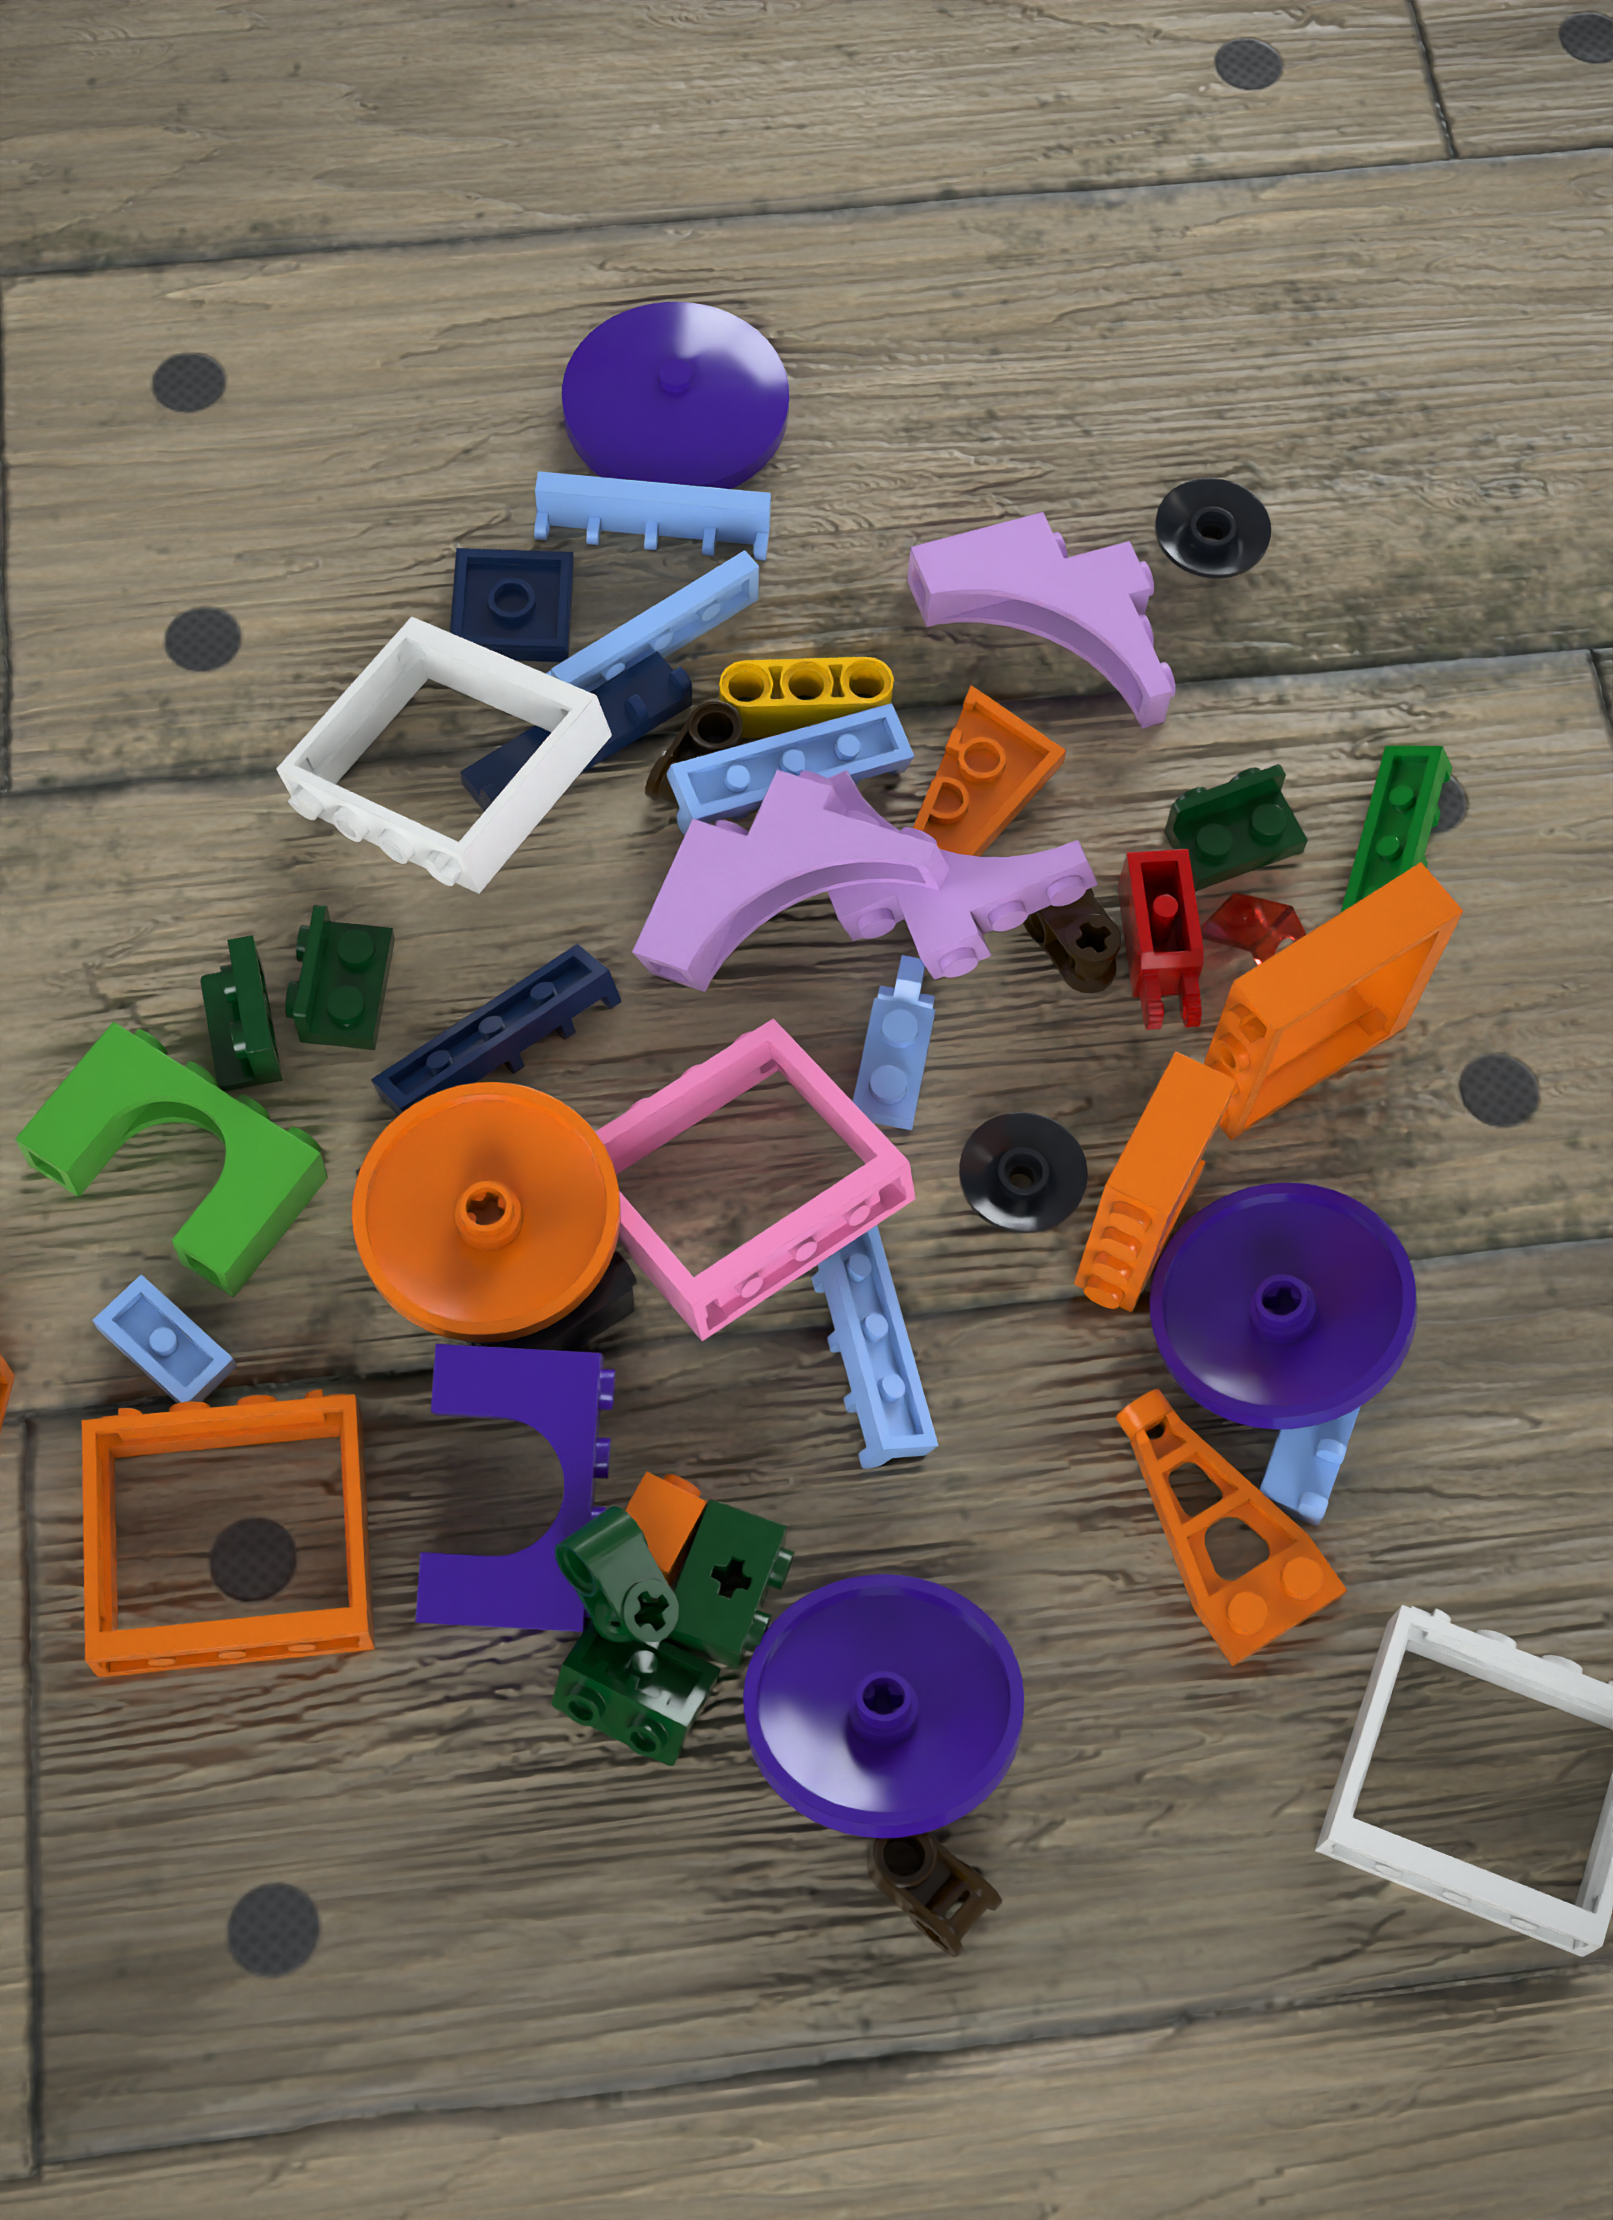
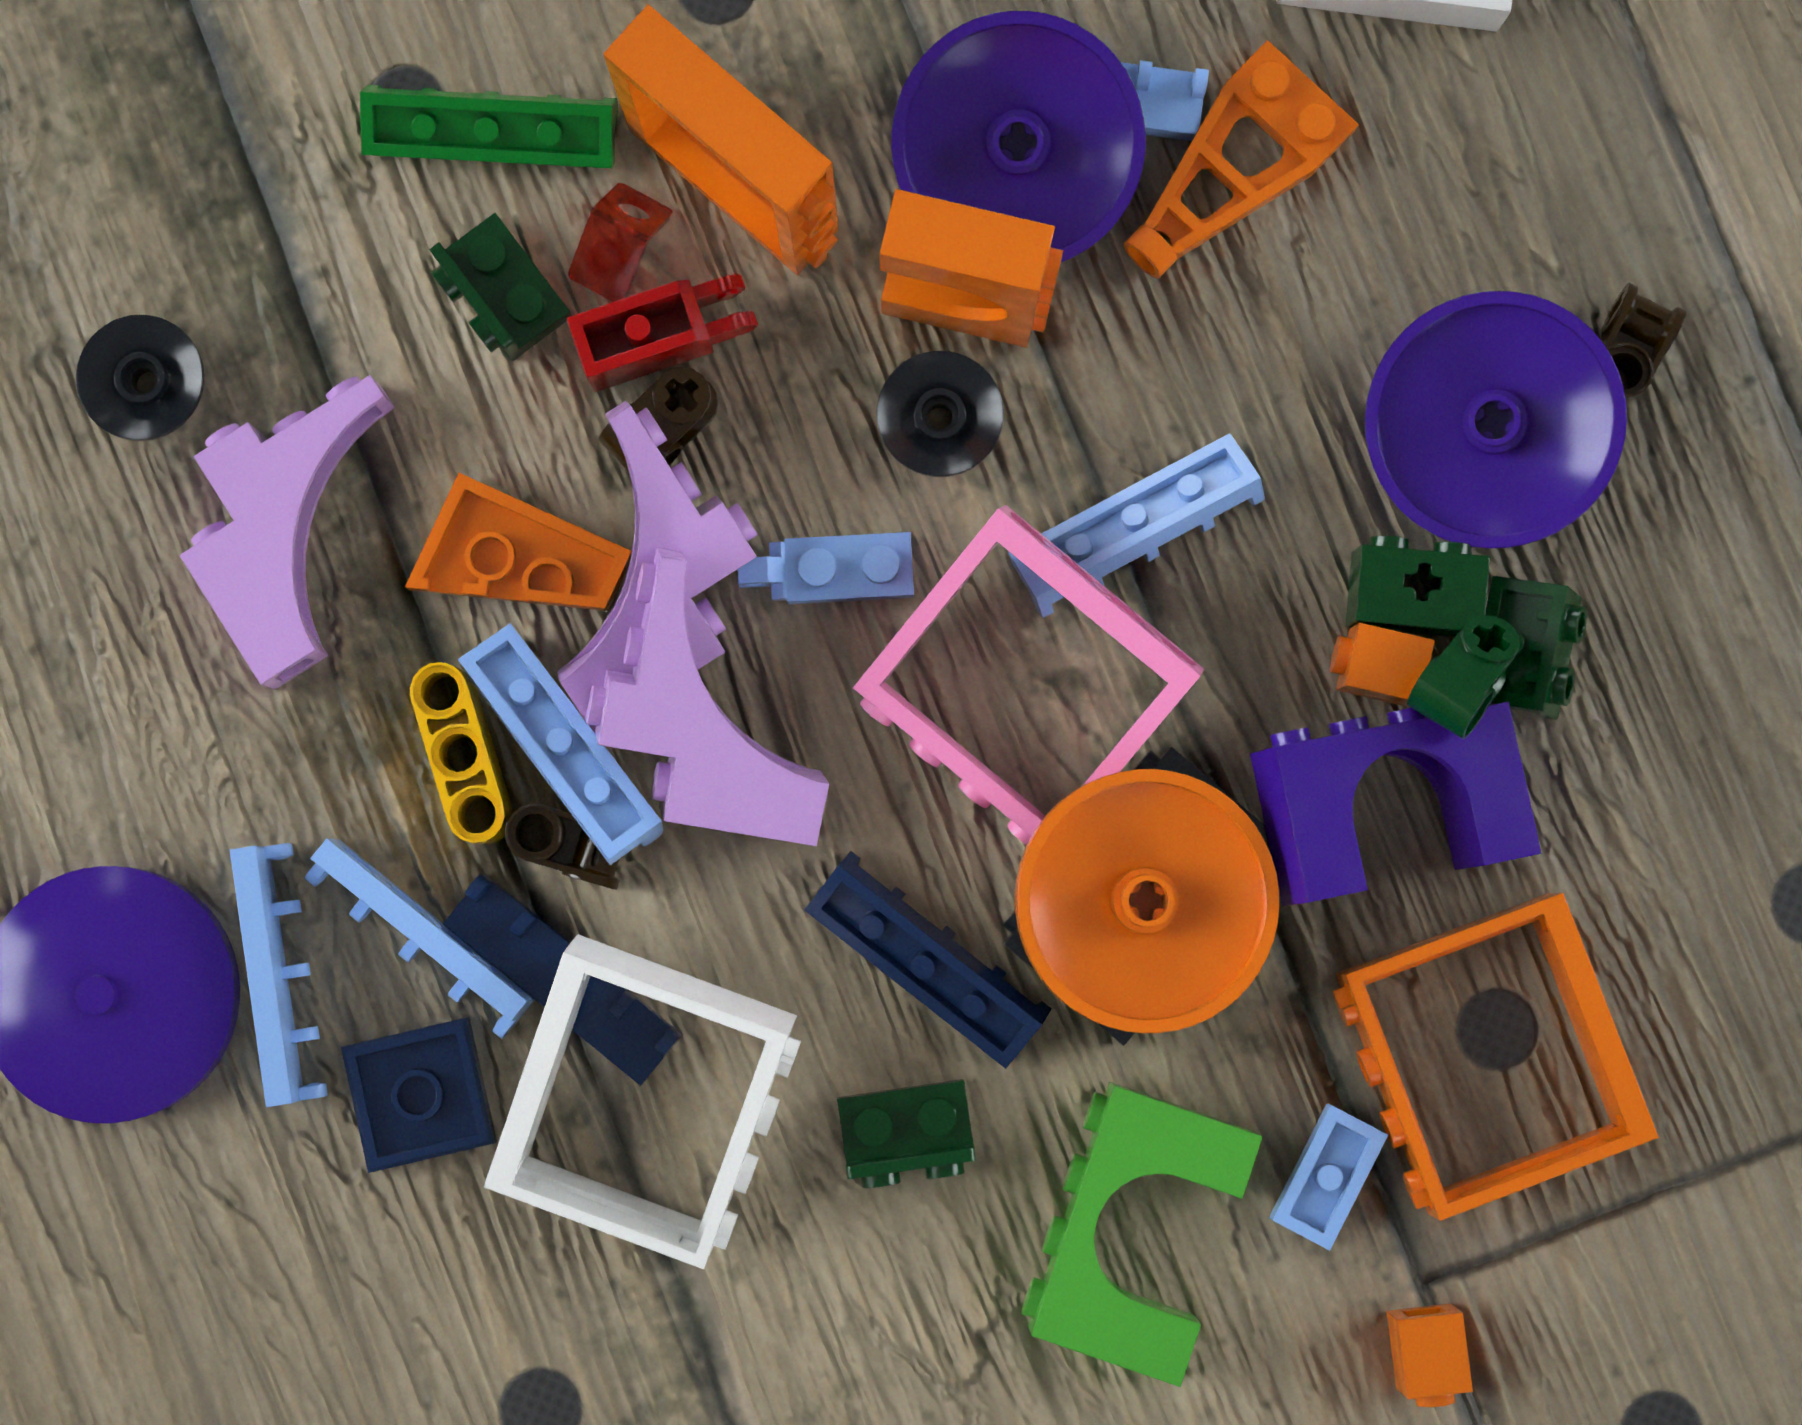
camera: 100 degrees left, 20 degrees up
(241, 1020) = (982, 1215): dark green bracket -> none

